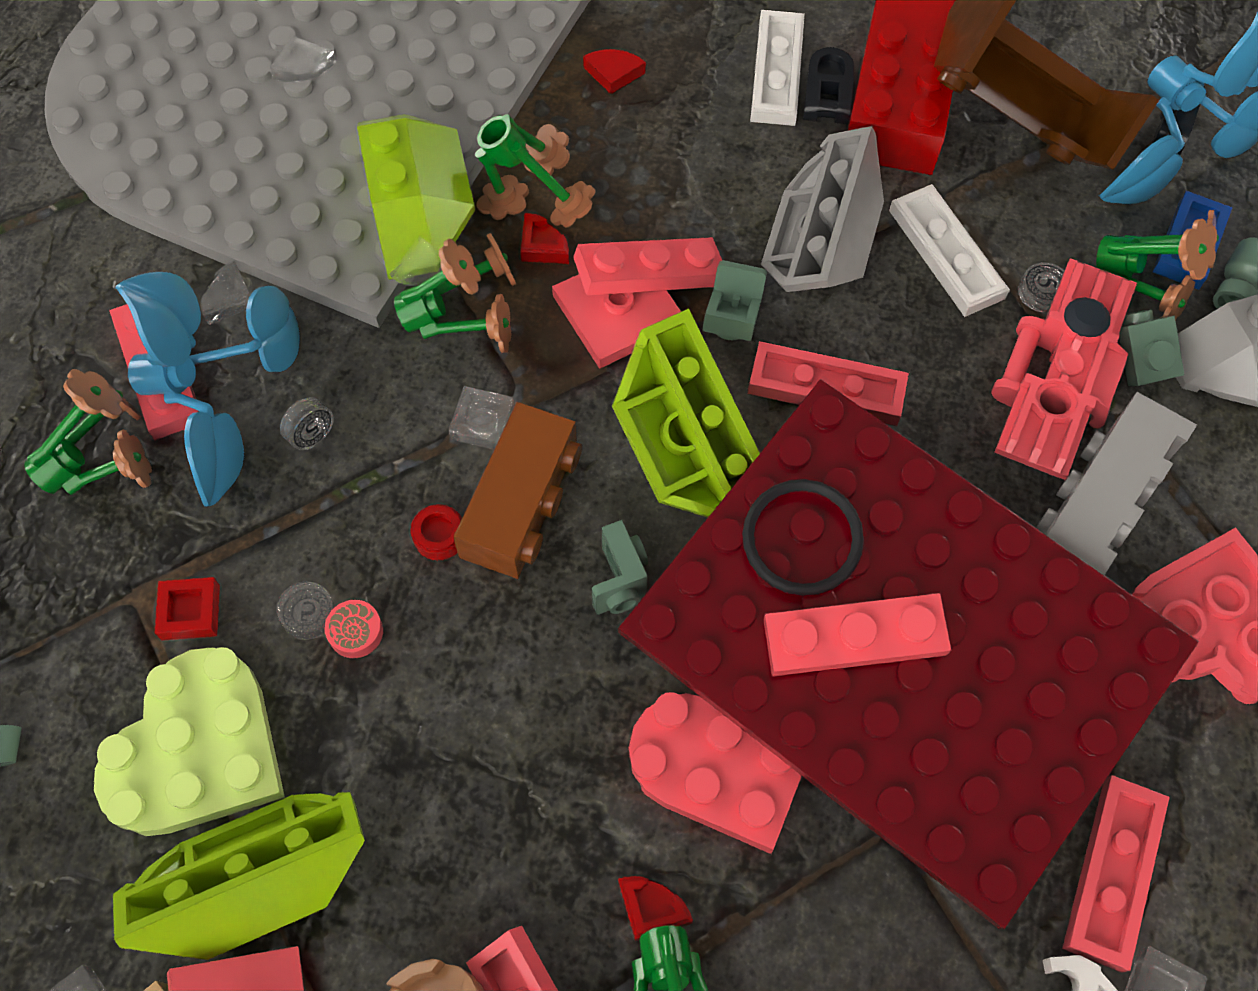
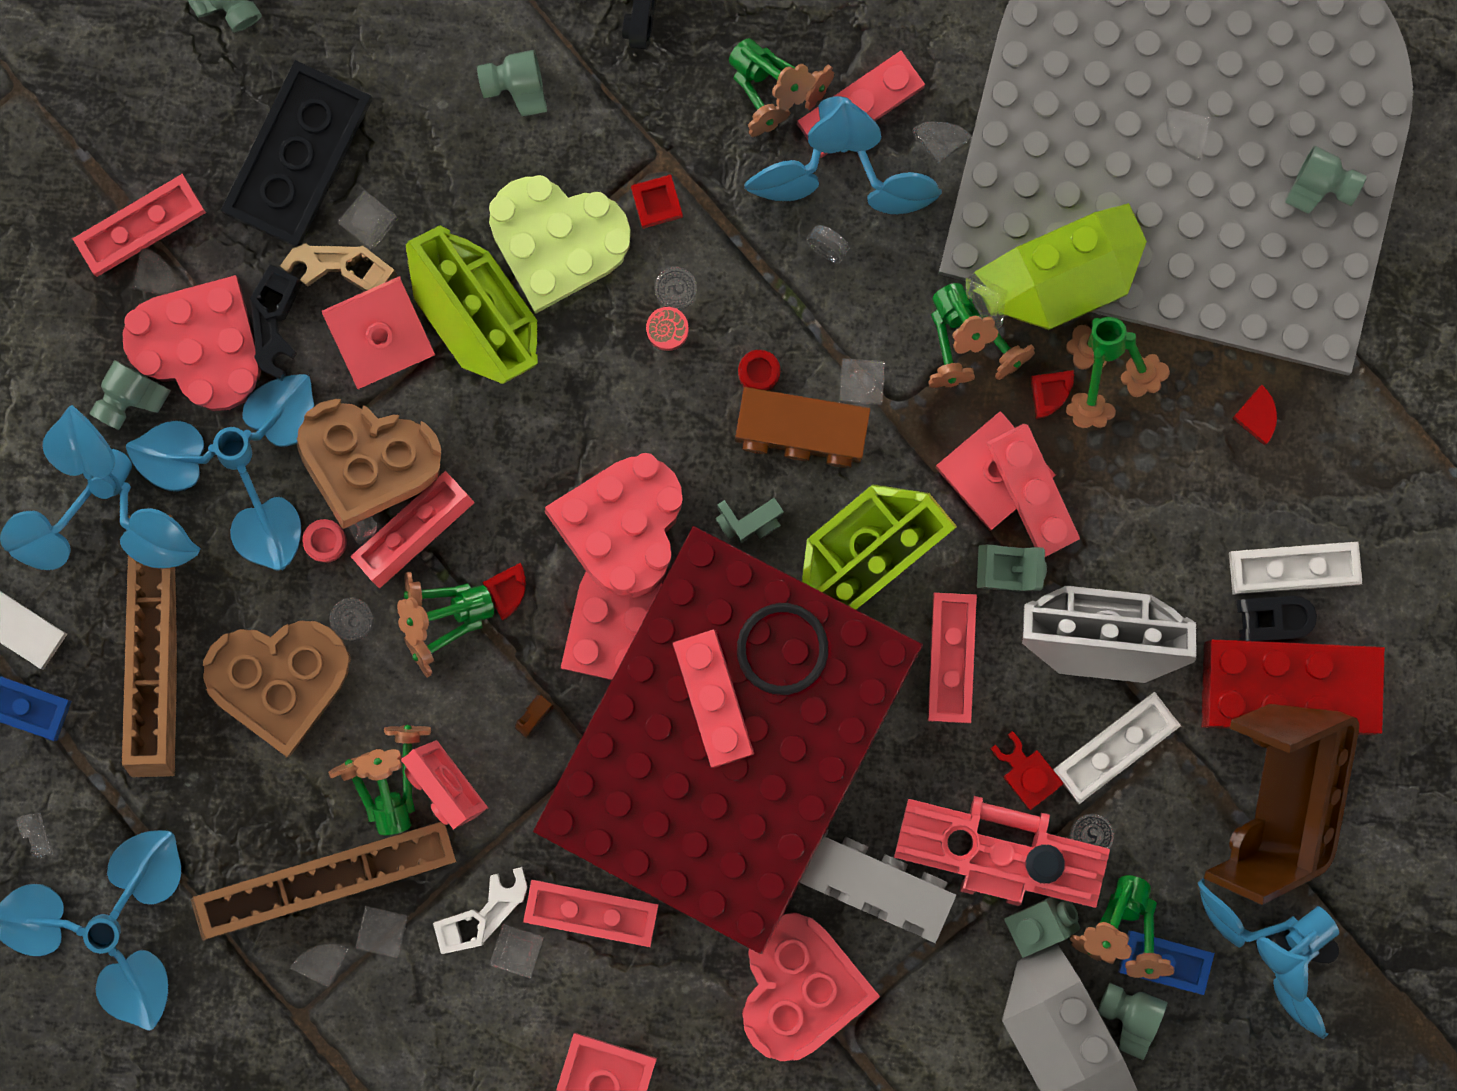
camera: 80 degrees right, 20 degrees up
(595, 730) = (621, 524): none -> coral plate
(834, 899) = (533, 716): none -> reddish brown tile
(968, 333) = (1030, 776): none -> red plate

